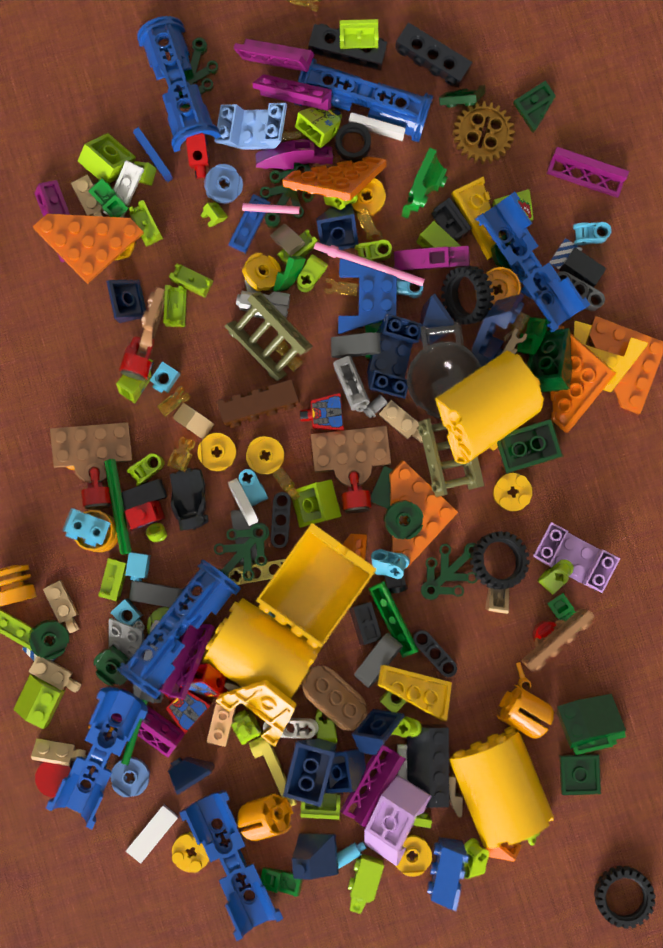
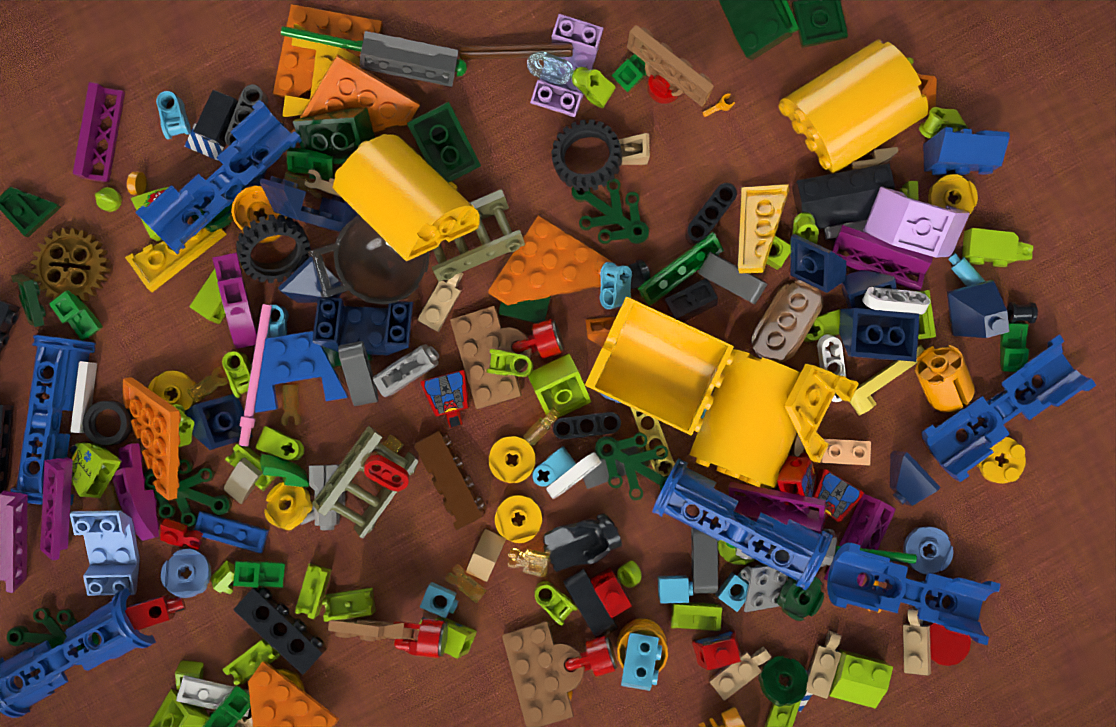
camera: 100 degrees left, 0 degrees up
(82, 591) = (717, 650): none -> red torso
(117, 506) = (607, 627): green axle -> none
(126, 299) = (351, 666): dark blue slope -> none
(152, 154) = (164, 668): blue tile -> none
(152, 833) = (989, 510): white tile -> none
(168, 239) = (266, 627): none -> black brick
(212, 240) = (259, 574): none -> green slope
(246, 726) = (842, 421): lime hinge -> none
(255, 182) = (177, 534): none -> red plate
(271, 208) = (207, 508): bright pink bar -> none
(273, 351) = (385, 473): none -> red plate
(307, 893) = (1022, 312): none -> black bush
(337, 779) = (896, 300): none -> white beam
(341, 465) = (507, 363): none -> lime piece
(375, 406) = (428, 337): light grey pin -> none
(414, 519) = (557, 264): dark green plate -> none
(429, 178) = (139, 321): green slope -> none
(444, 131) = (78, 315): none -> green slope
(451, 220) = (184, 286): black hinge -> none
(520, 484) = (514, 161): yellow plate -> none
(521, 698) = (763, 111): light orange cylinder -> none
(532, 171) = (108, 199): none -> lime tile
(541, 195) = (136, 183): none -> light orange tile
(576, 544) = (551, 67): none -> clear light blue plate
(596, 518) = (506, 51): none -> reddish brown axle
(608, 419) = (395, 55): none -> piece

